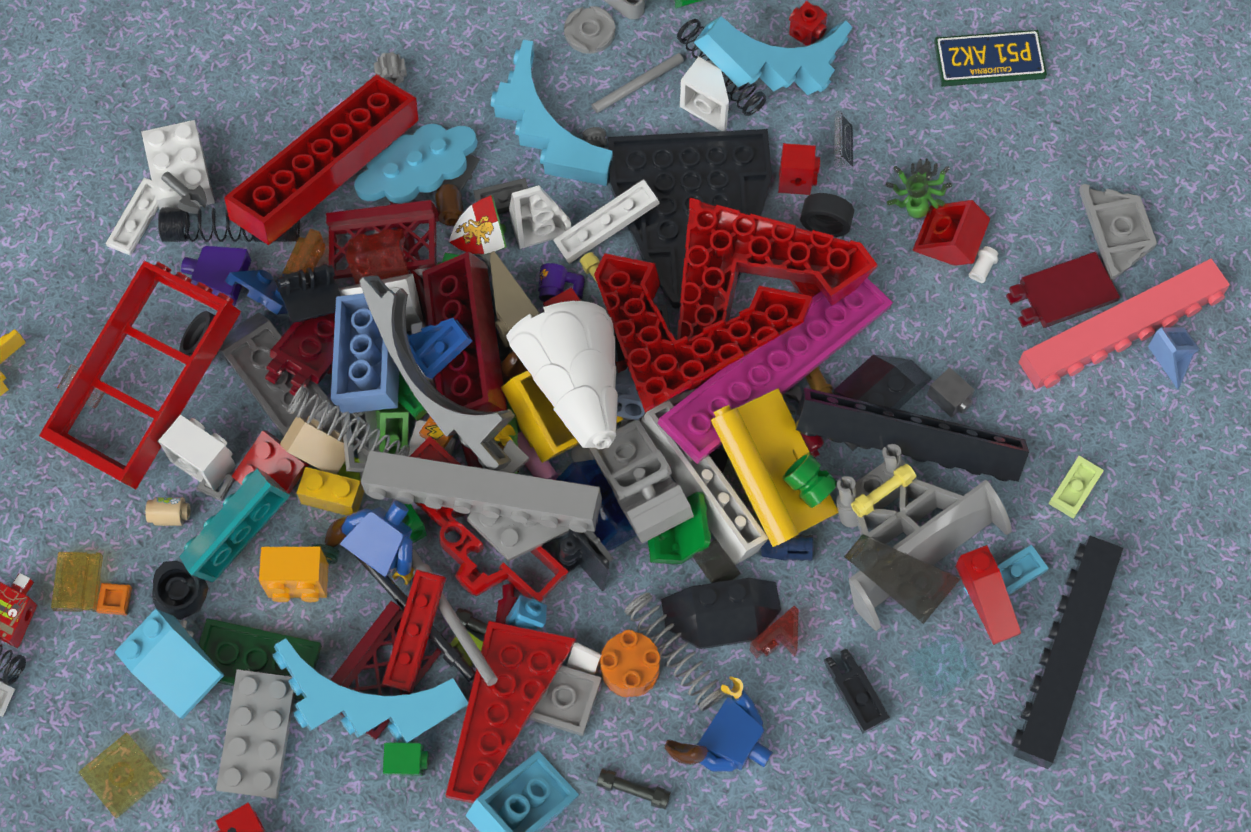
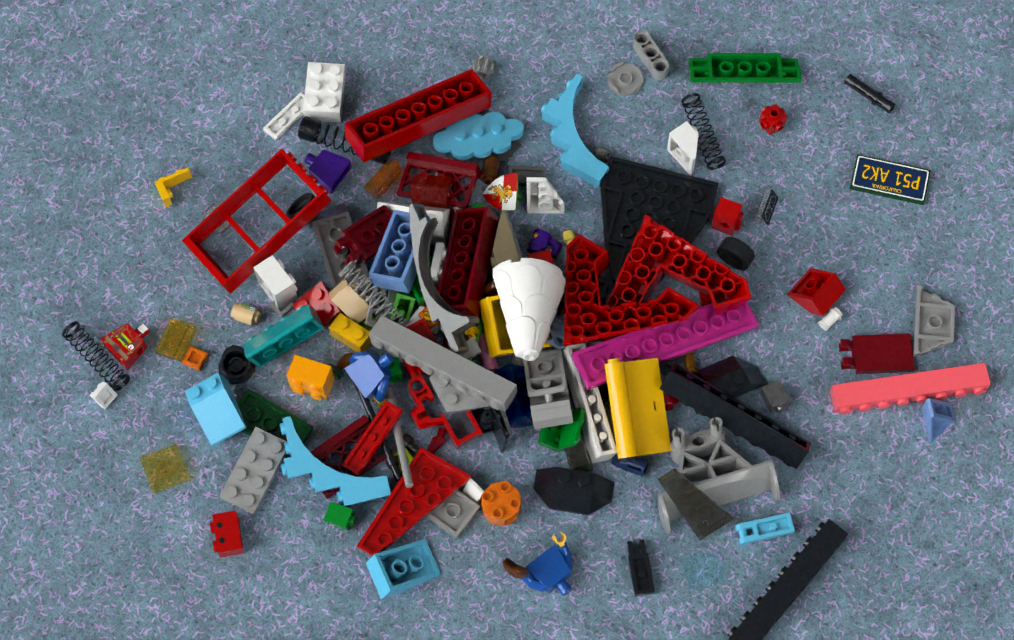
camera: 20 degrees right, 0 degrees up
(186, 194) = (322, 112): dark grey bar -> none
(261, 287) = (352, 190): blue wing -> none
(309, 293) = (379, 201): black hinge -> none
(438, 345) = (447, 261): blue wing -> none
(527, 614) = (447, 450): dark azure bracket -> none
(606, 221) = (588, 212): white plate -> none
(637, 83) = (643, 125): light grey bar -> none
(643, 600) = (525, 465): light grey piece -> none
(658, 797) = (463, 572): pearl dark grey bar -> none
(748, 59) = (717, 133): medium azure arch -> none
(784, 630) = (607, 514): clear red slope -> none
(810, 480) = (657, 424): green wheel -> none
(902, 476) = (686, 451): light yellow bar -> none
(918, 189) = (804, 254): animal -> none
(988, 593) = (747, 534): slope -> none
(1076, 487) = (834, 485): yellowish green plate -> none

